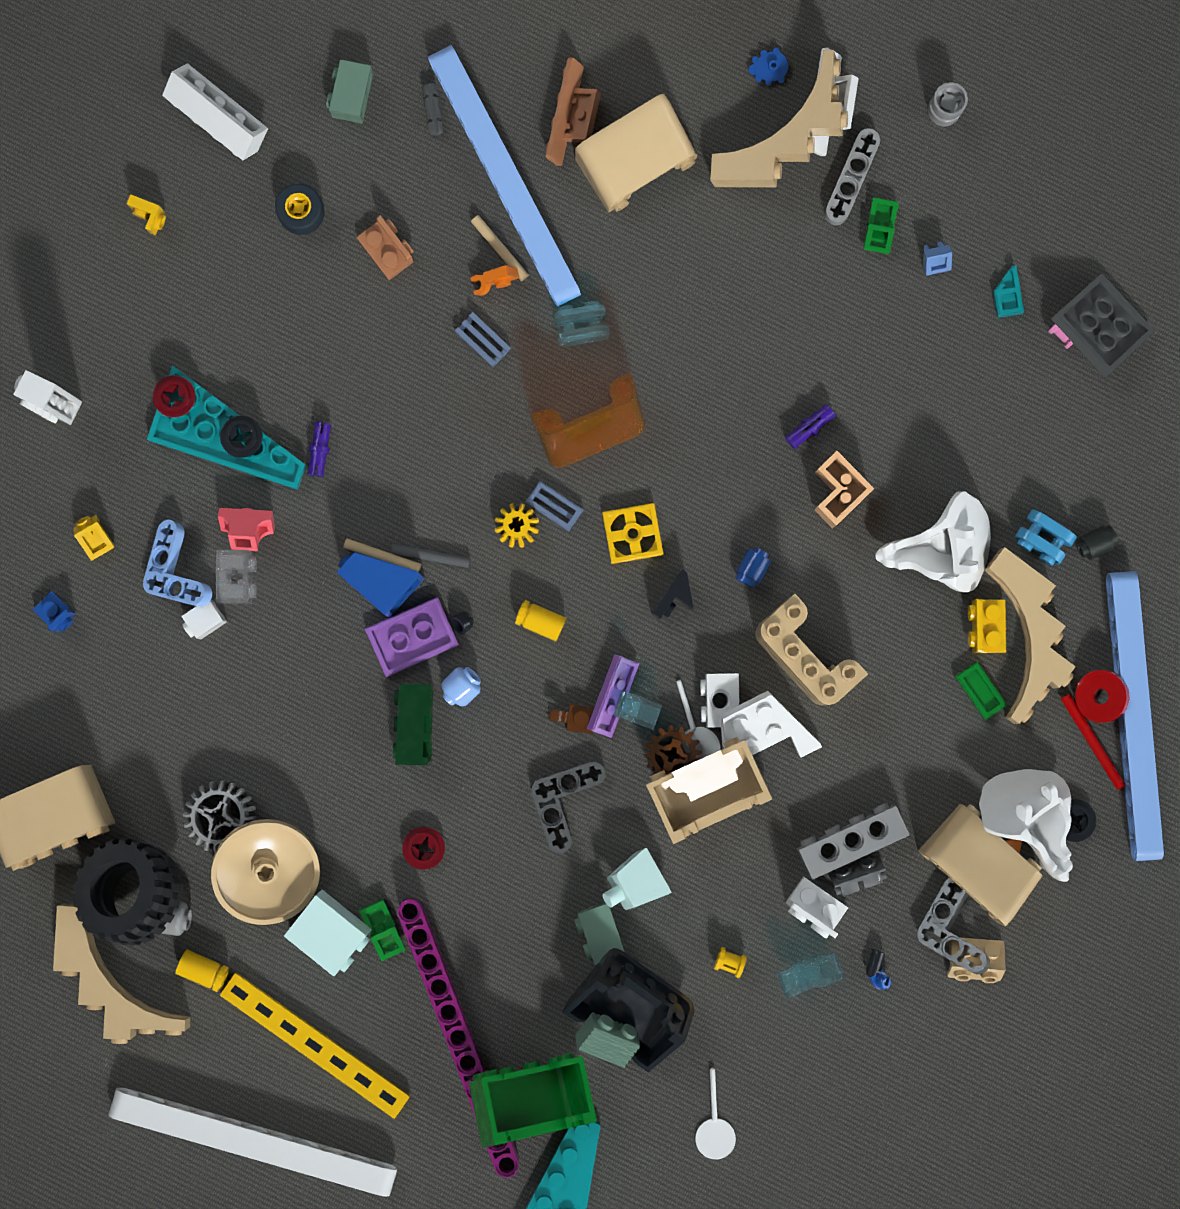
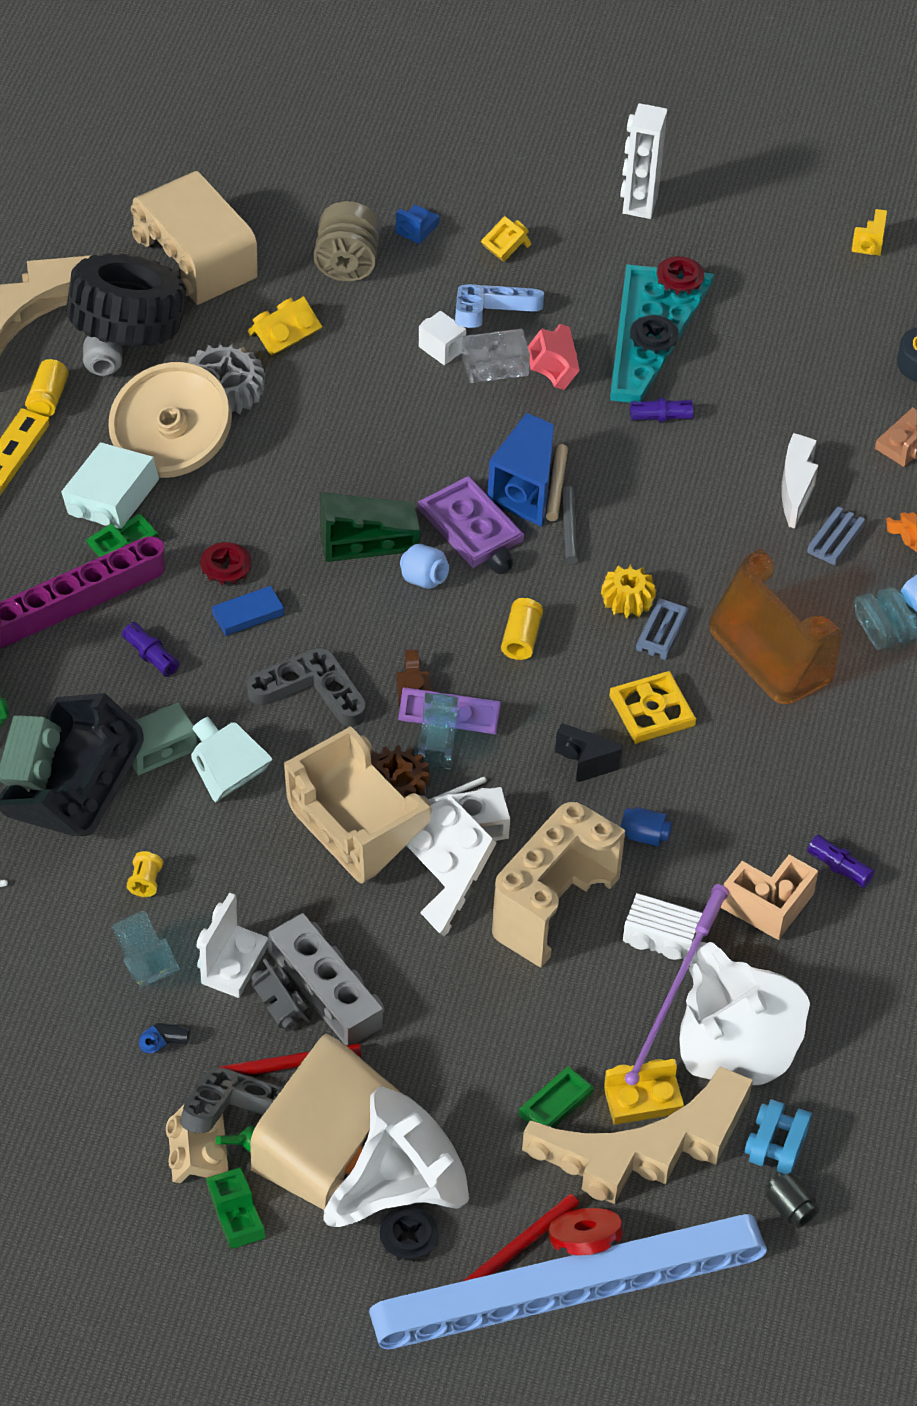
camera: 80 degrees right, 35 degrees down
(79, 681) = (347, 241): none -> dark tan wheel
(162, 752) = (286, 326): none -> yellow bracket
(419, 356) = (798, 477): none -> white slope
(476, 838) = (248, 610): none -> blue tile
(504, 924) = (150, 649): none -> dark purple pin
(849, 577) = (660, 926): none -> white brick
(868, 550) = (718, 895): none -> medium lavender piece
(913, 879) = (277, 1063): none -> red bar
(979, 919) = (238, 1139): none -> green hand
(1031, 940) = (235, 1208): none -> green slope

